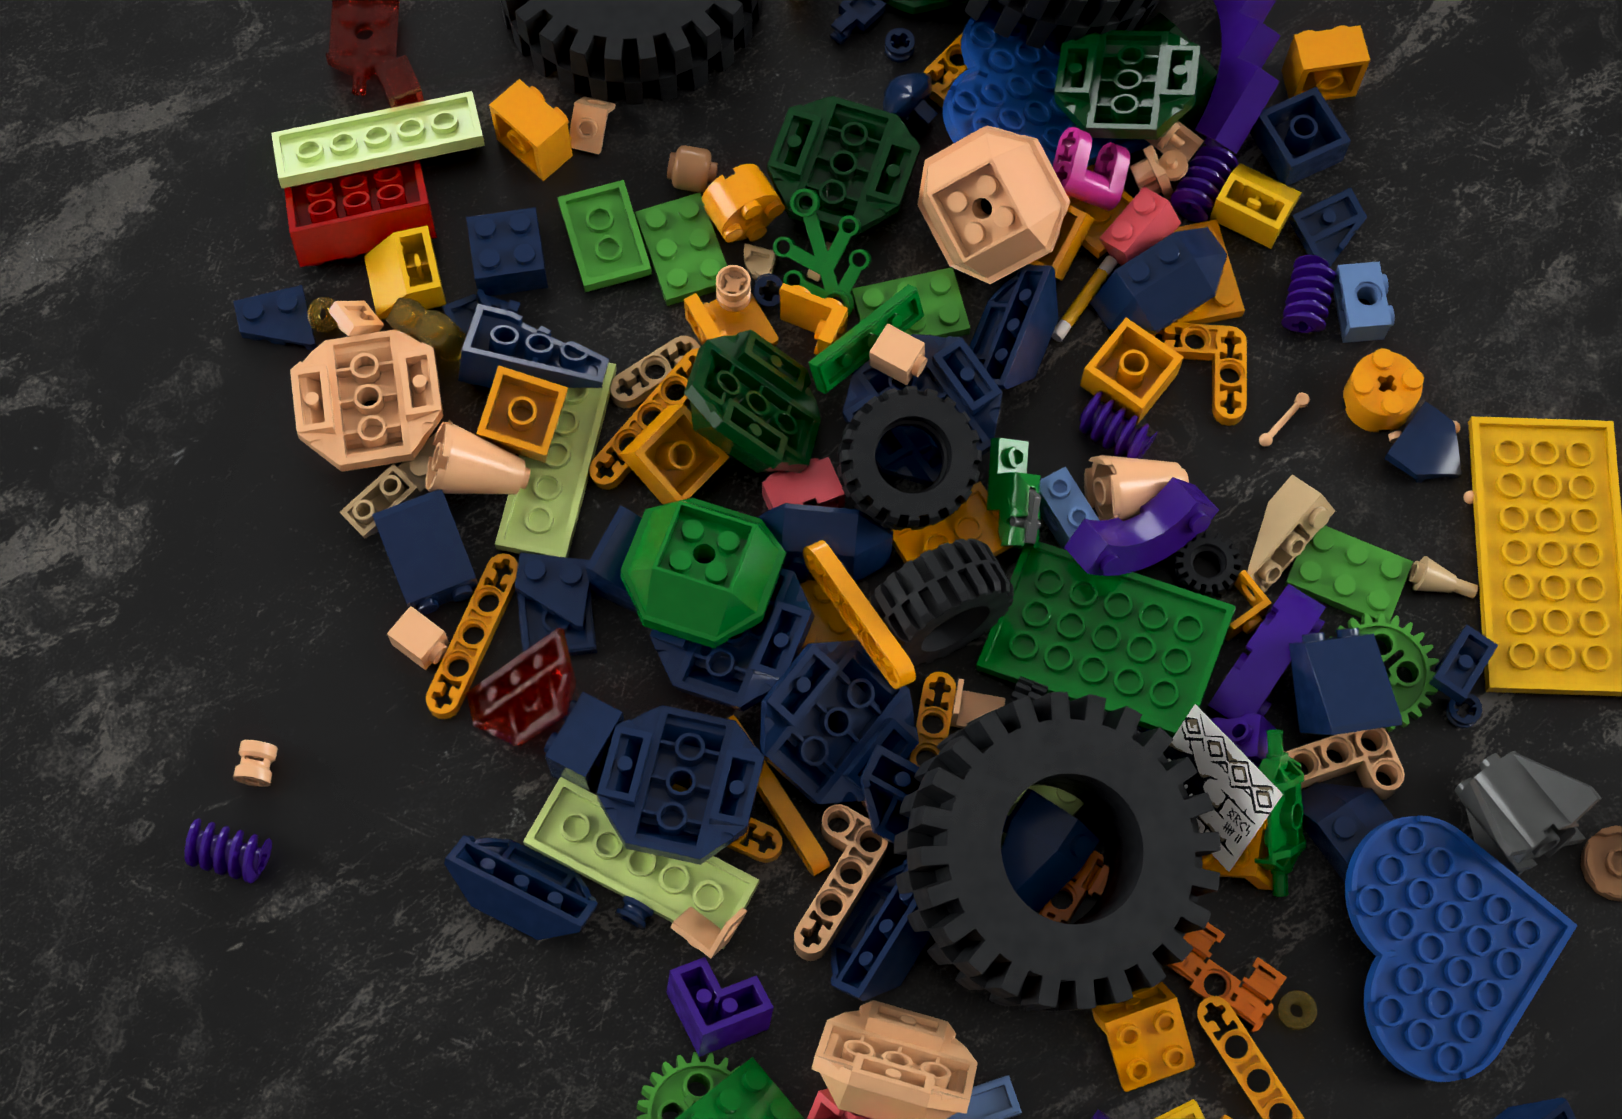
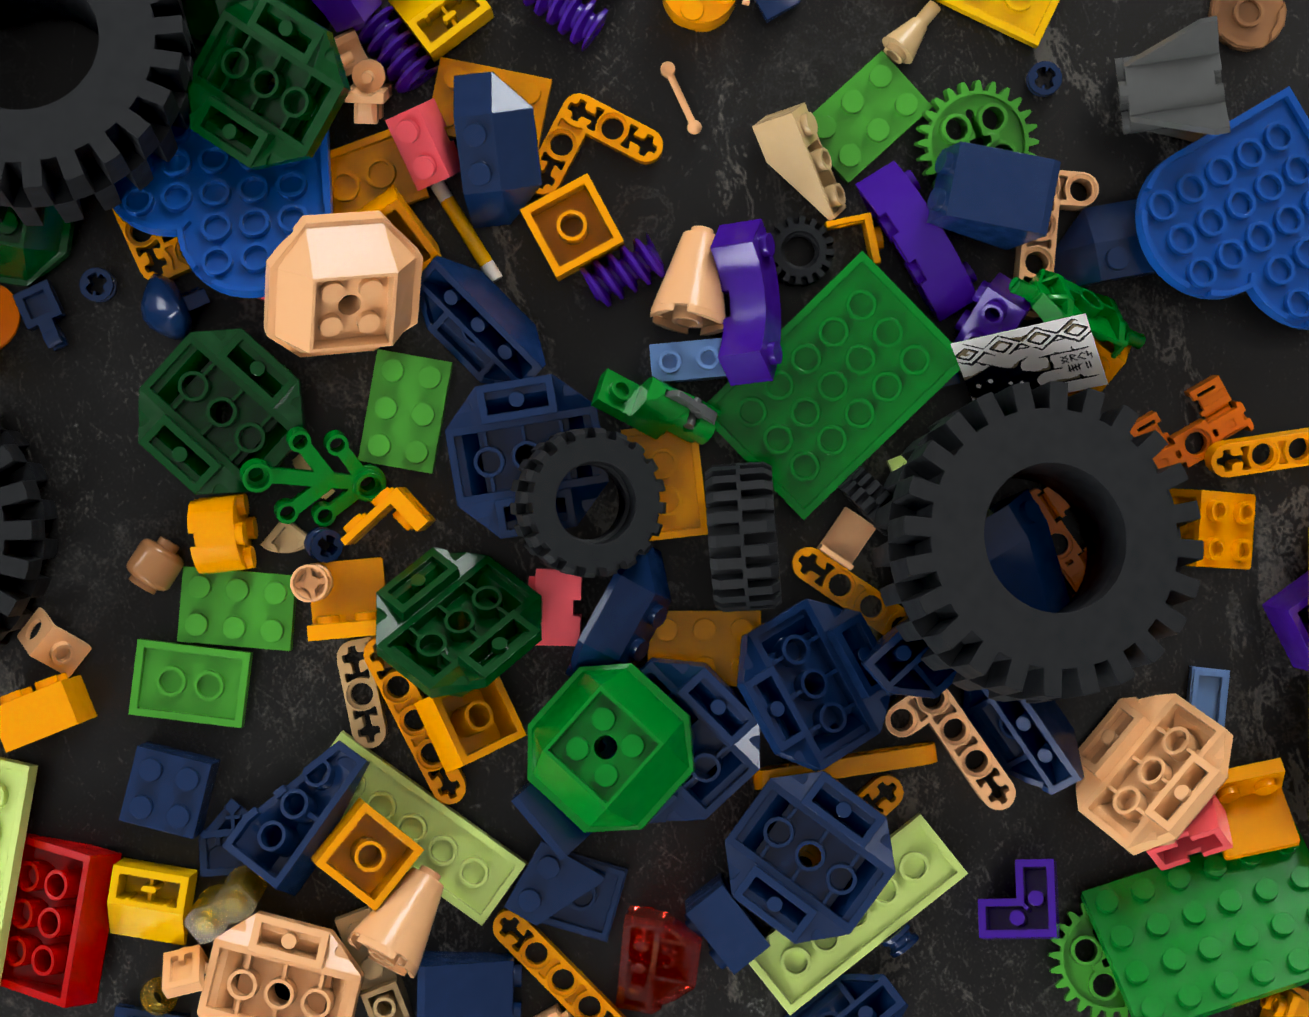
camera: 70 degrees left, 20 degrees up
(703, 933) = (952, 889): light nougat bracket -> none
(854, 346) = (431, 478): green tile -> none
(859, 614) = (725, 622): light orange beam -> none
(898, 354) = (467, 457): light nougat brick -> none
(1086, 185) = (360, 177): dark pink connector -> none
(1307, 1004) = (1259, 375): clear yellow plate -> none
(1463, 664) = (1009, 61): dark blue slope -> none

